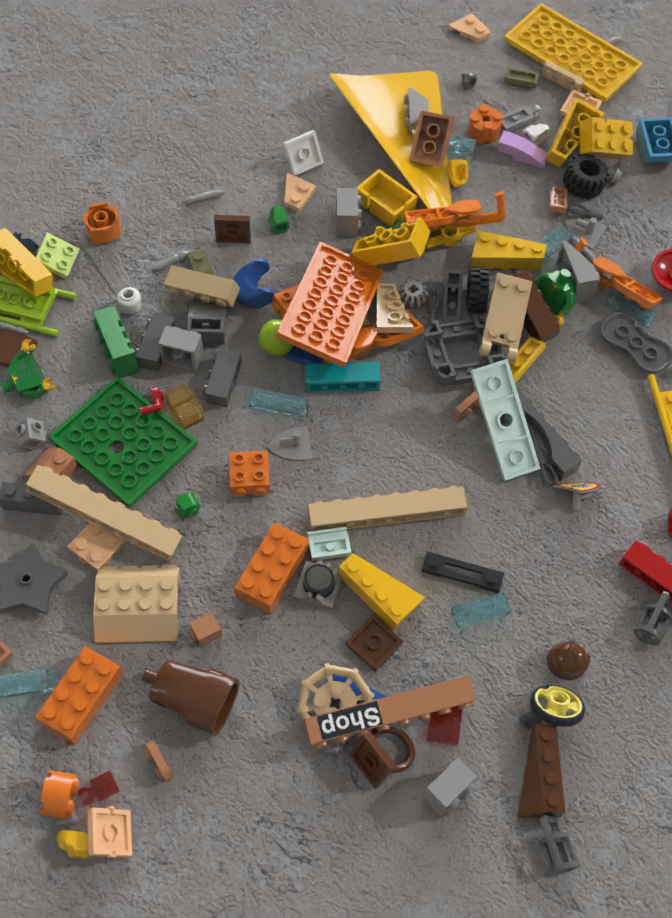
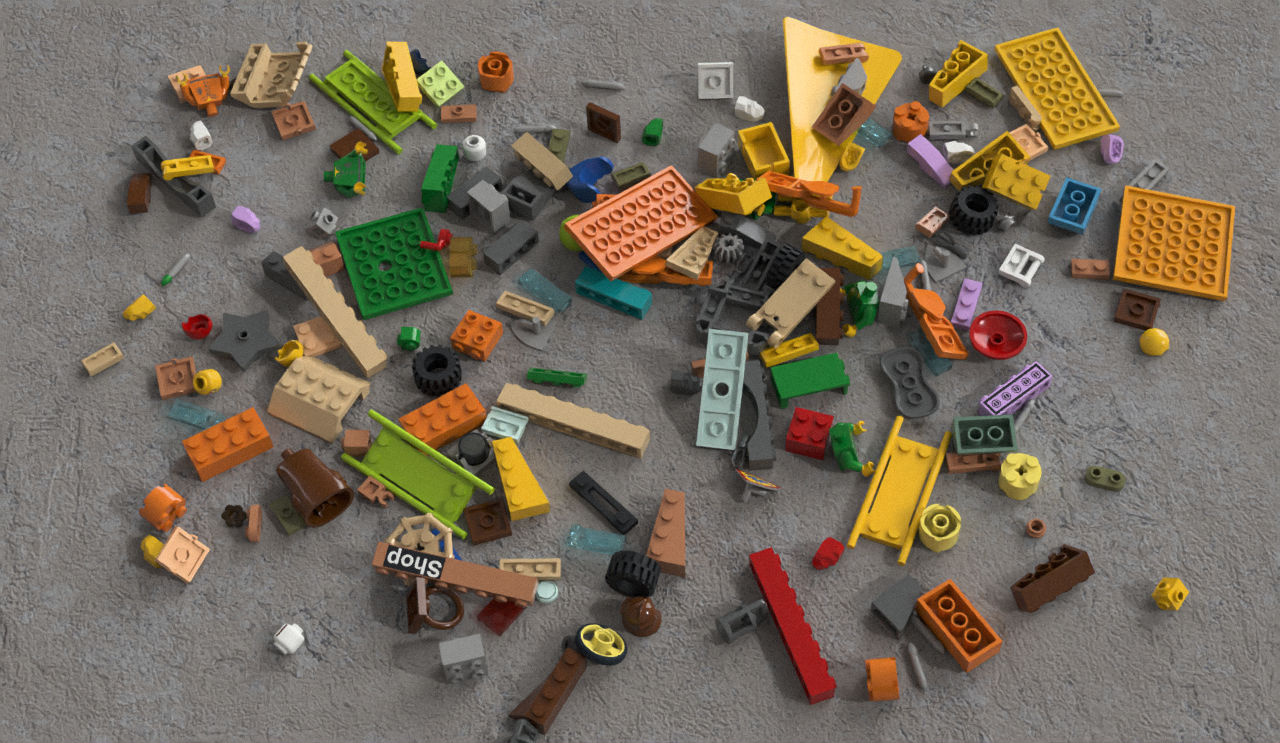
camera: 35 degrees right, 5 degrees down
(18, 643) = (207, 381): none -> yellow head
(82, 574) = (289, 352): none -> yellow hair
(90, 275) = (459, 113): none -> nougat plate
(102, 787) = (201, 522): clear red plate -> none
(133, 764) = (234, 515): none -> dark brown plant
(183, 734) = (287, 515): none -> olive plate
(235, 509) = (436, 358): none -> black tyre
(250, 668) = (374, 490): none -> nougat plate
(269, 859) = (288, 638): none -> white head
(273, 427) = (524, 307): none -> tan plate
(284, 266) = (630, 175): none -> olive plate
(284, 630) = (418, 474): none -> lime piece
(297, 192) = (689, 115): light nougat wing -> none
(344, 167) = (748, 109): none -> white rock
(345, 477) = (556, 377): none -> green plate
(391, 89) = (843, 53): none -> nougat plate
(415, 270) = (748, 231): none -> dark grey slope
(444, 667) = (540, 568): none -> tan plate
(457, 429) = (685, 383): none -> dark grey rock
(470, 28) = (969, 25): light nougat wing -> none
(475, 677) = (546, 592): none -> light aqua piece
(493, 67) = (957, 72): none -> yellow wedge
(543, 574) = (668, 535): none -> nougat wedge
(543, 626) = (632, 574): none -> black tyre
(556, 377) = (808, 377): none -> green panel
(591, 424) = (809, 433): none -> red brick
(630, 256) = (966, 304): none -> lavender plate
(630, 421) = (845, 448): none -> green torso
(644, 207) = (1015, 263): none -> white plate
(648, 83) = (1111, 148): none -> lavender rock

